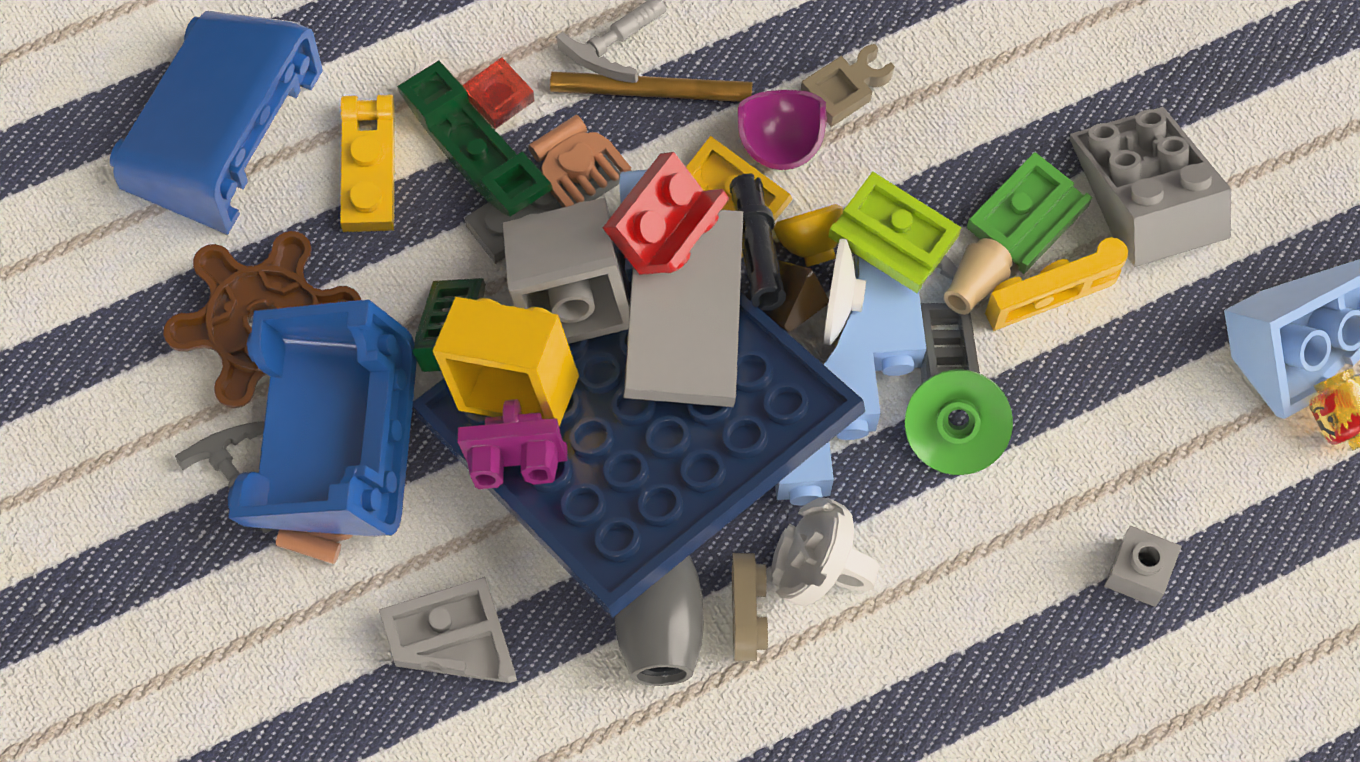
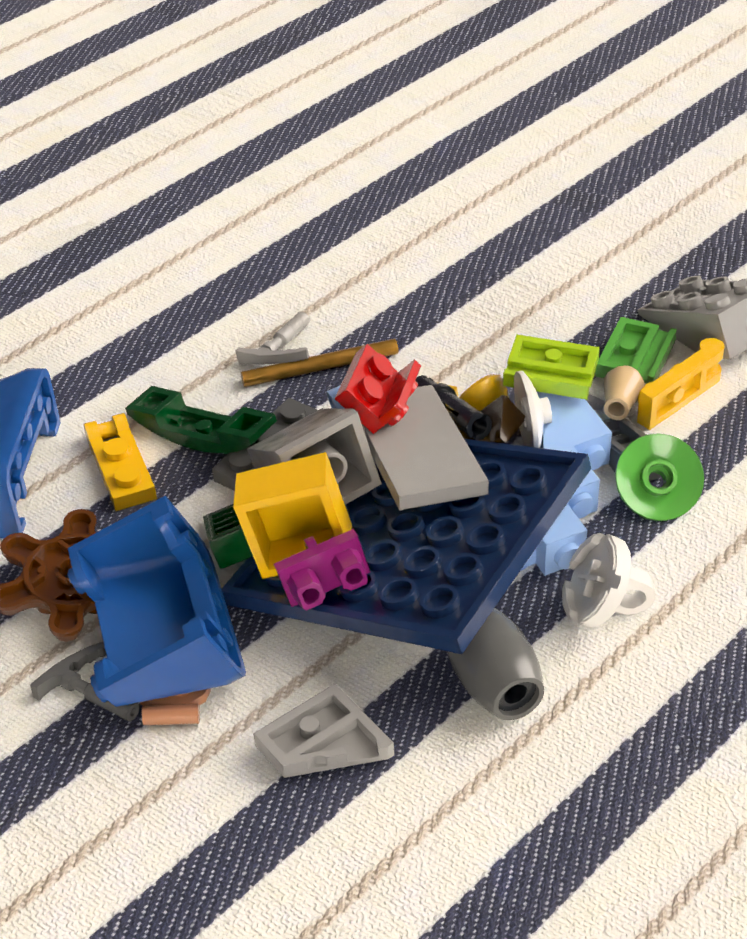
camera: 15 degrees left, 25 degrees down
(498, 93) = (207, 391): clear red plate -> none
(572, 157) = (287, 401): nougat piece -> none
(748, 583) = (561, 643): dark tan plate -> none
(782, 127) = (436, 350): magenta helmet -> none
(846, 86) = (463, 324): dark tan plate -> none

